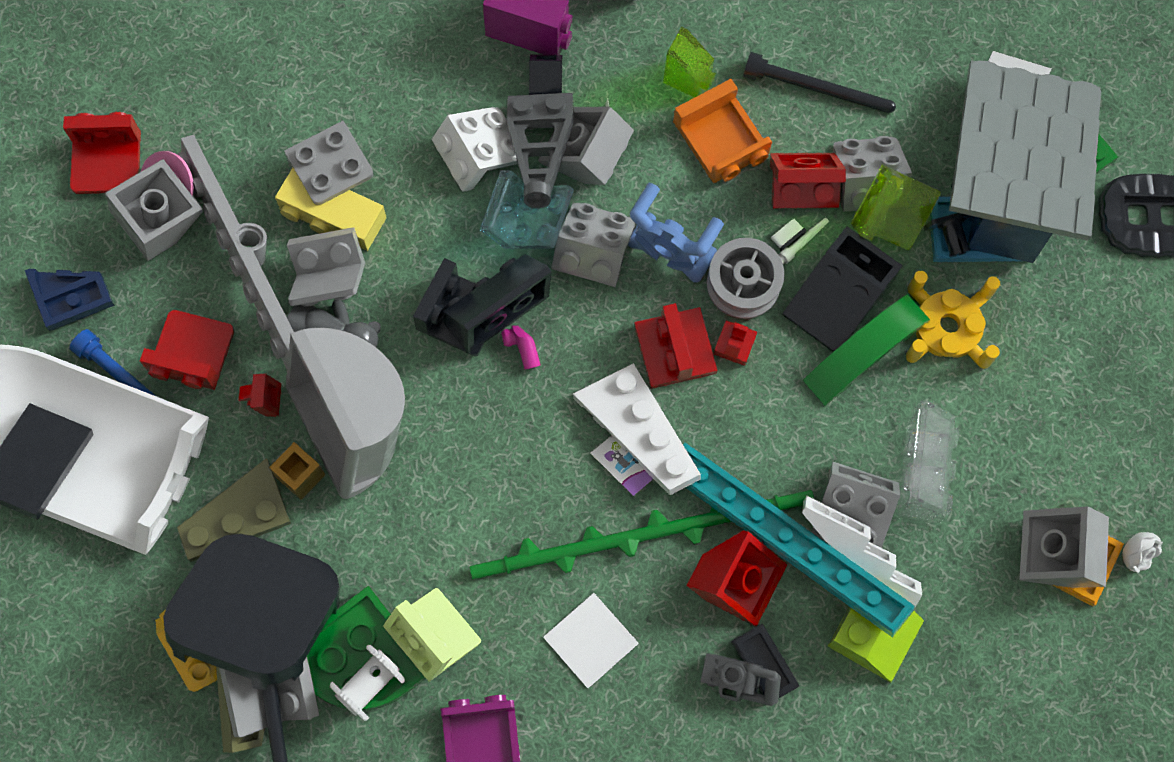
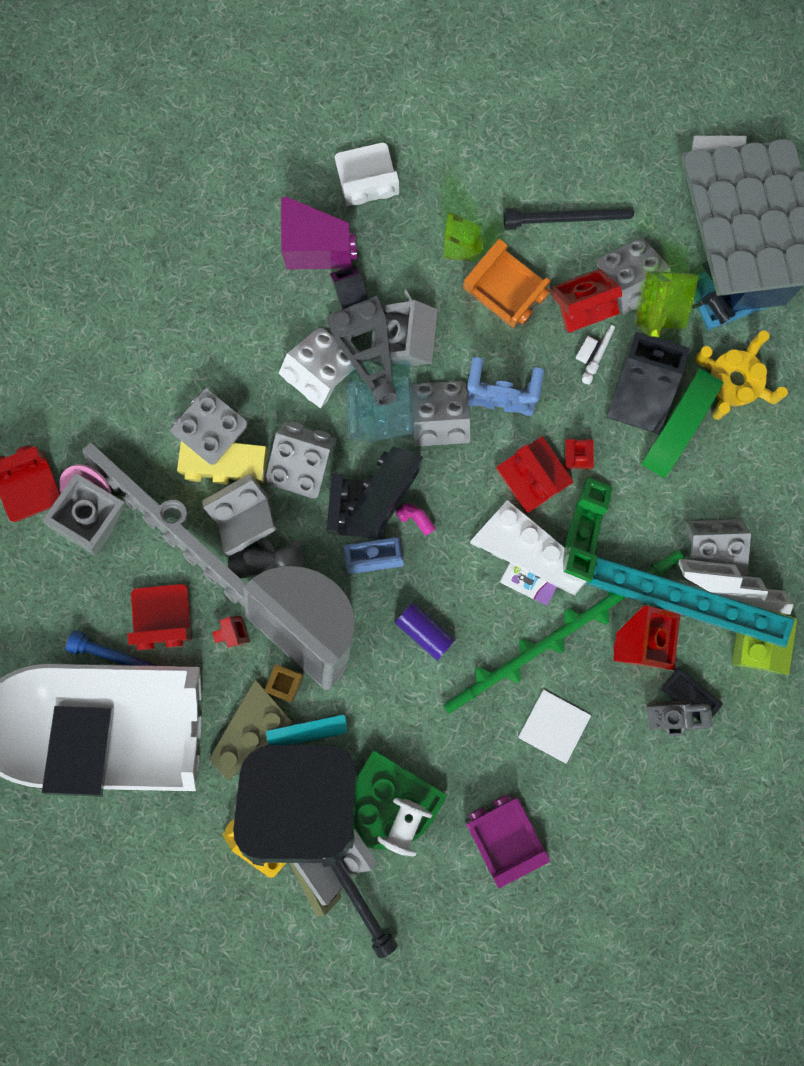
camera: 15 degrees left, 10 degrees up
(68, 295) = (45, 608): dark blue wing -> none
(303, 537) = (307, 731): none -> teal sticker
(416, 236) = (299, 459): none -> light grey bracket
(431, 633) = (437, 769): yellowish green bracket -> none
(456, 369) = (373, 555): none -> medium blue brick
(482, 475) = (425, 631): none -> dark purple brick
(711, 424) = (585, 529): none -> green slope
(742, 296) = (566, 416): light grey wheel -> none
(928, 464) = (761, 498): clear slope -> none

